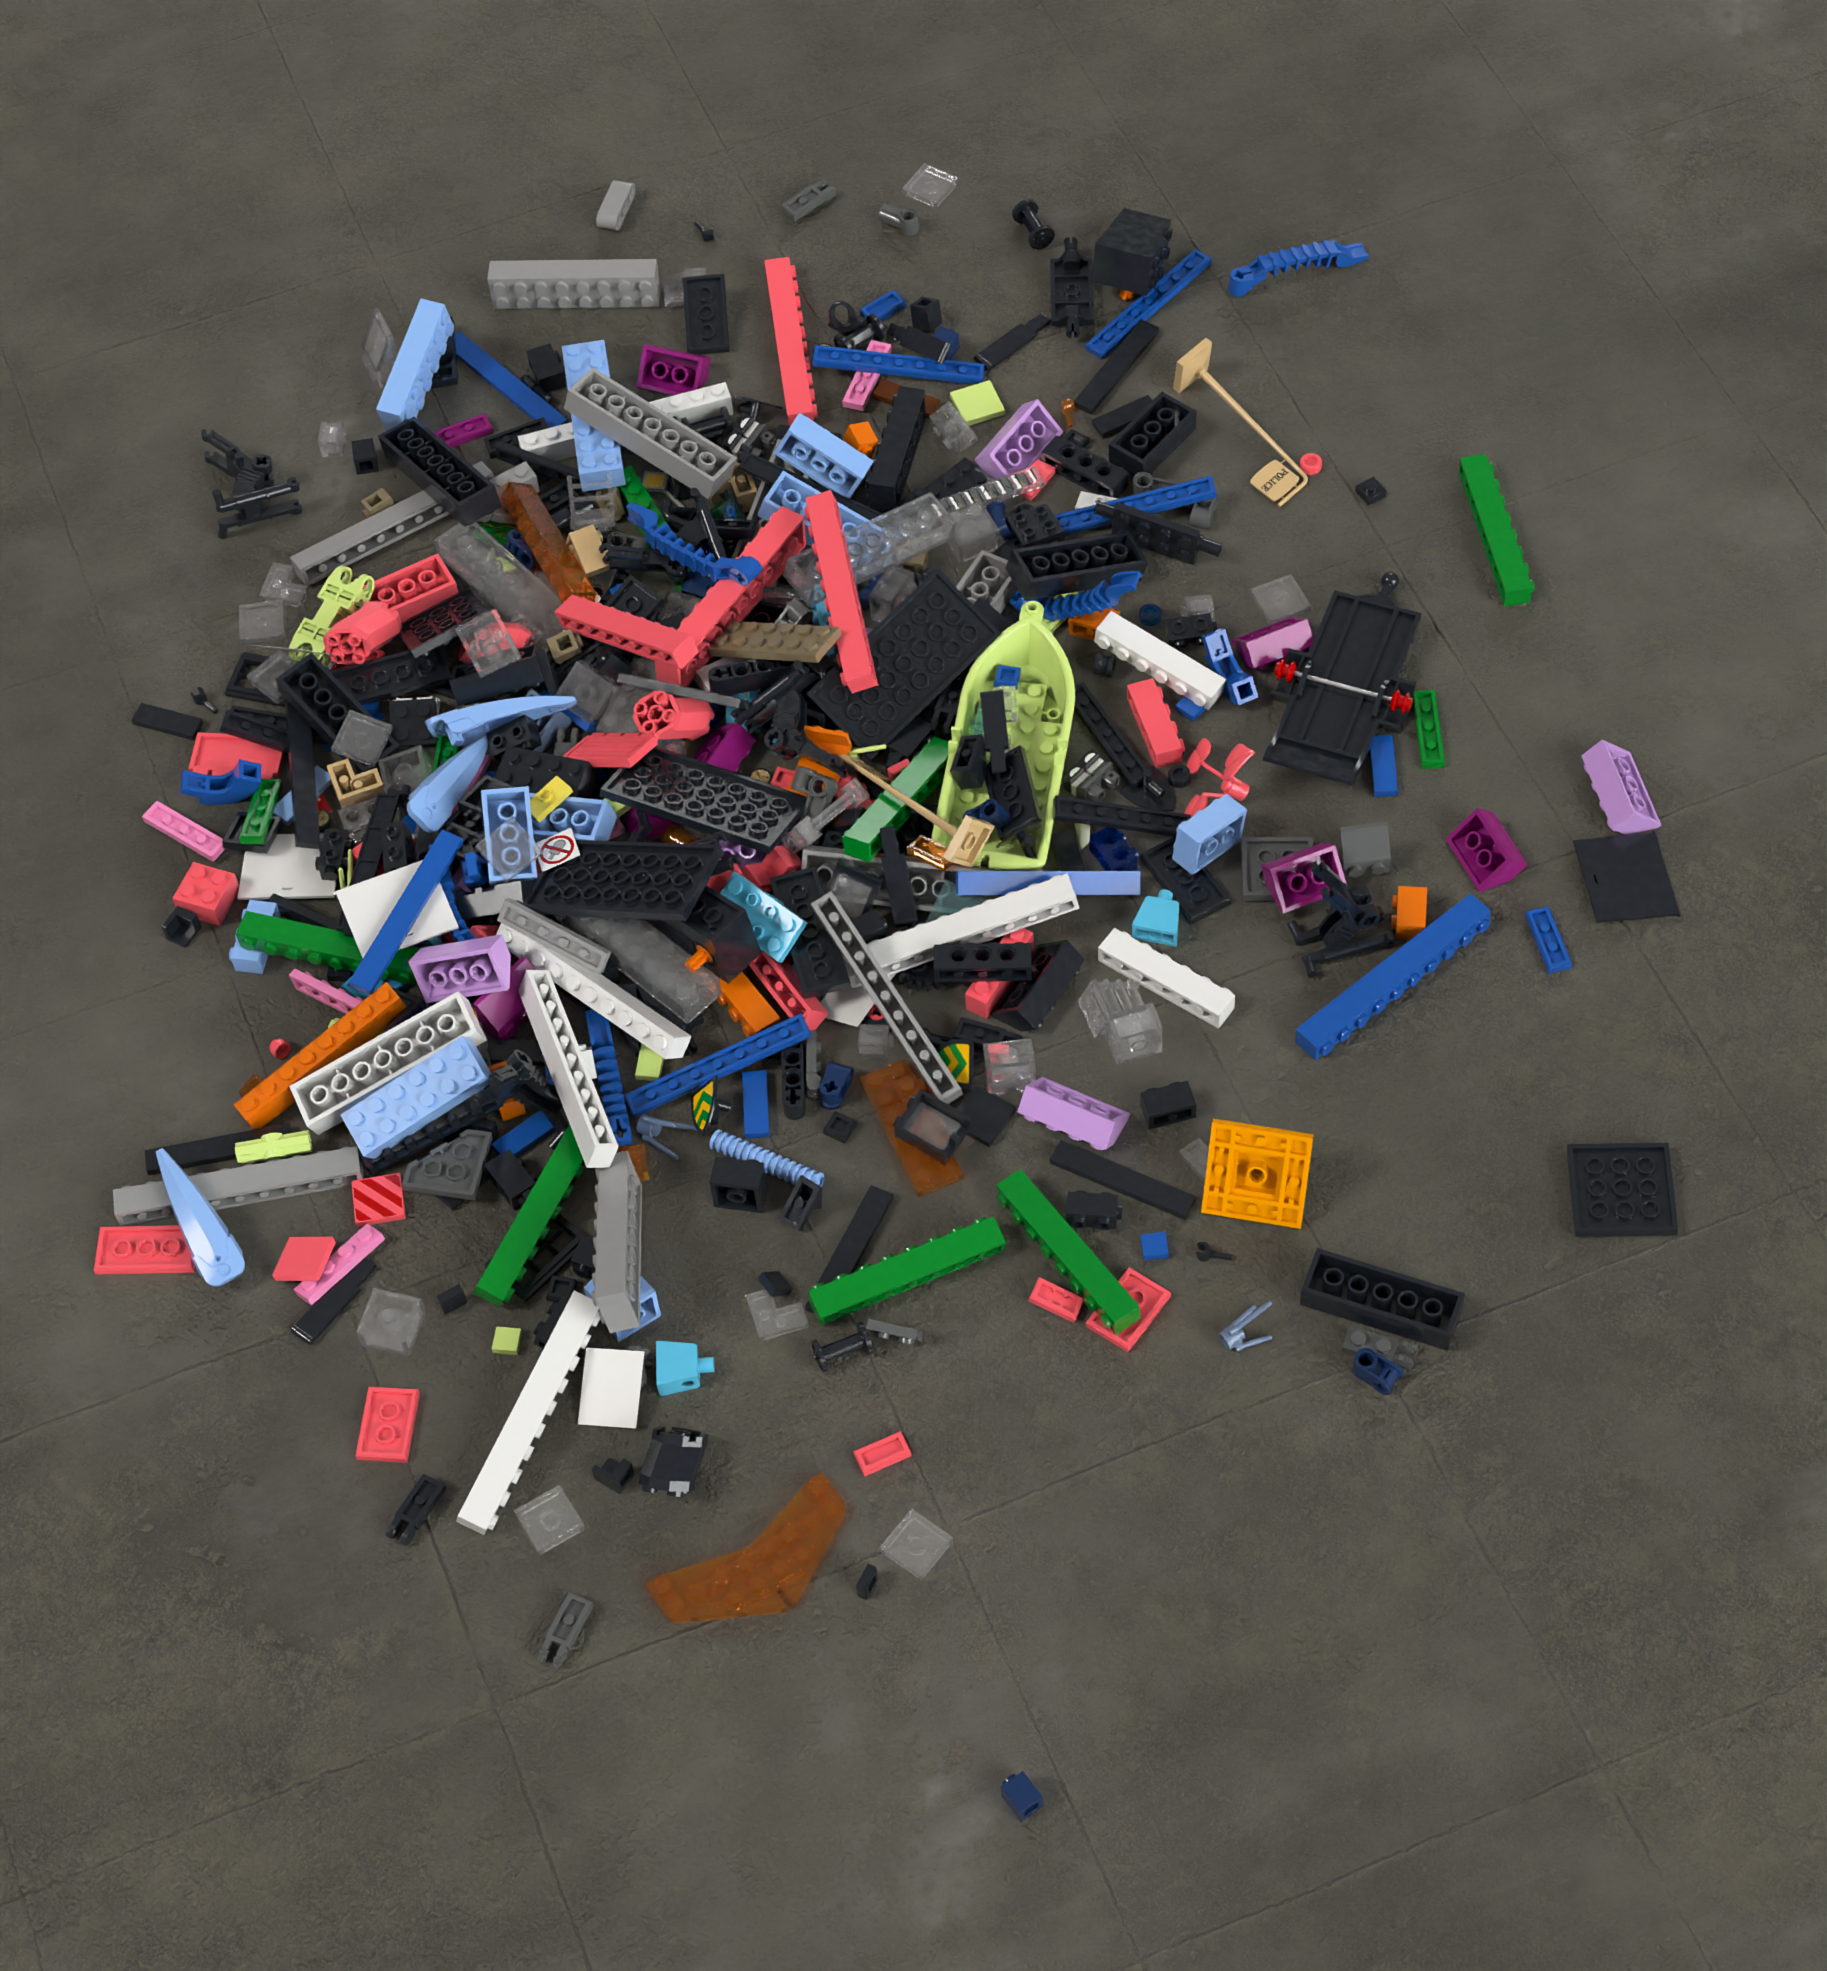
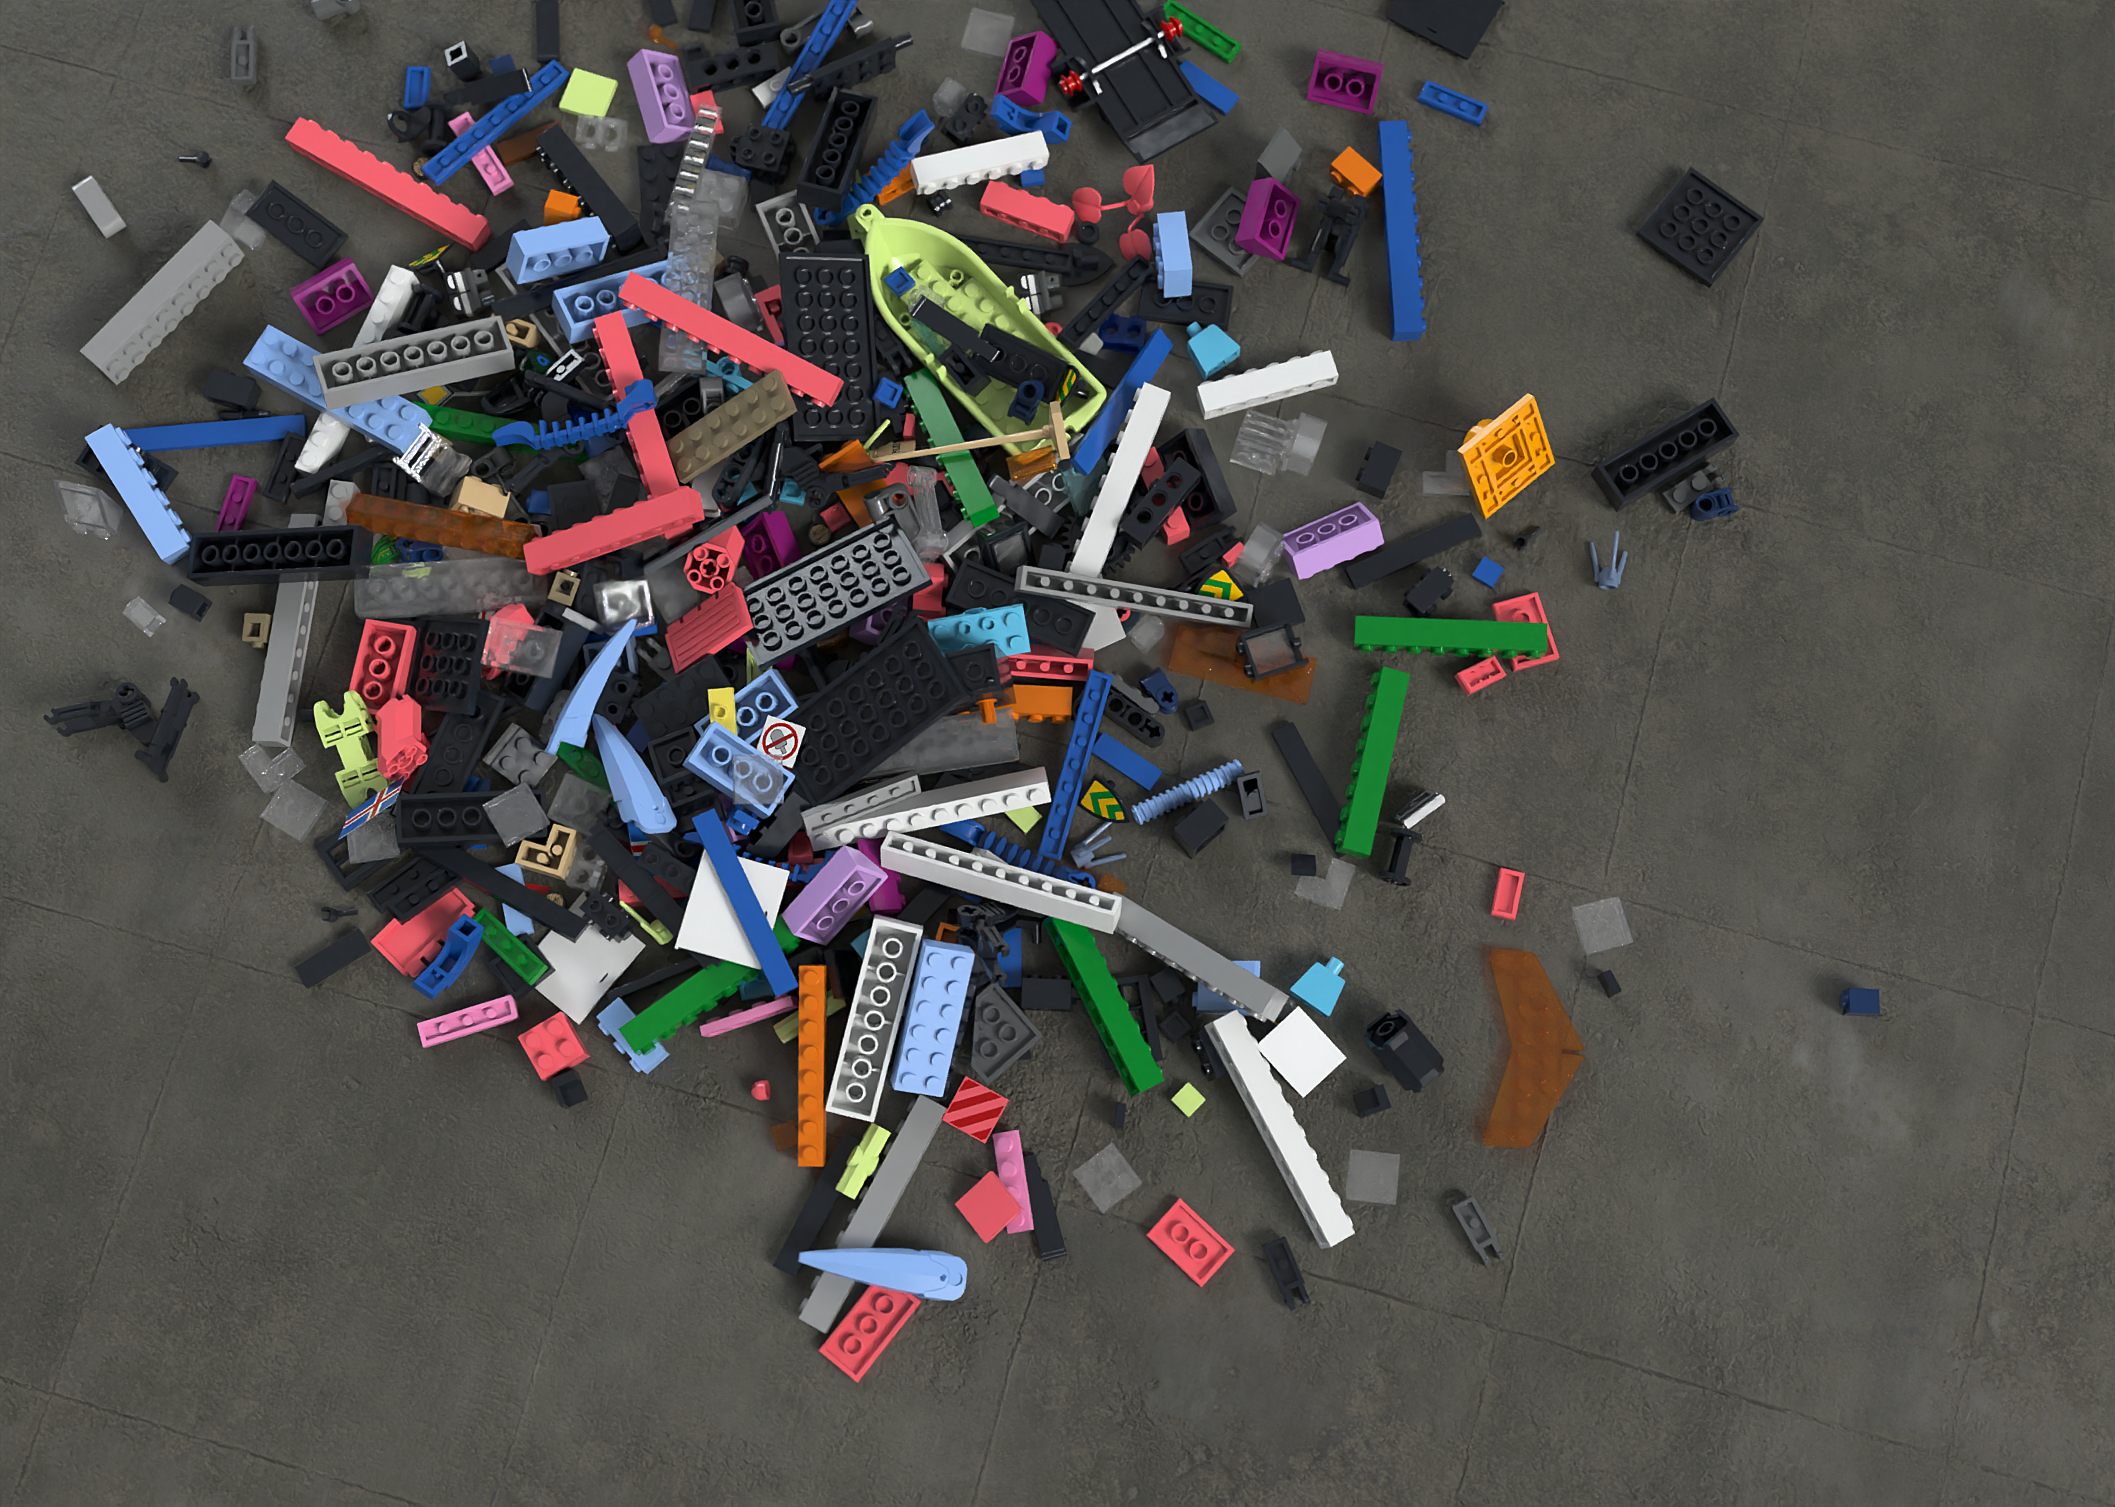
camera: 55 degrees left, 20 degrees up
(909, 732) = (887, 393): none -> blue tile

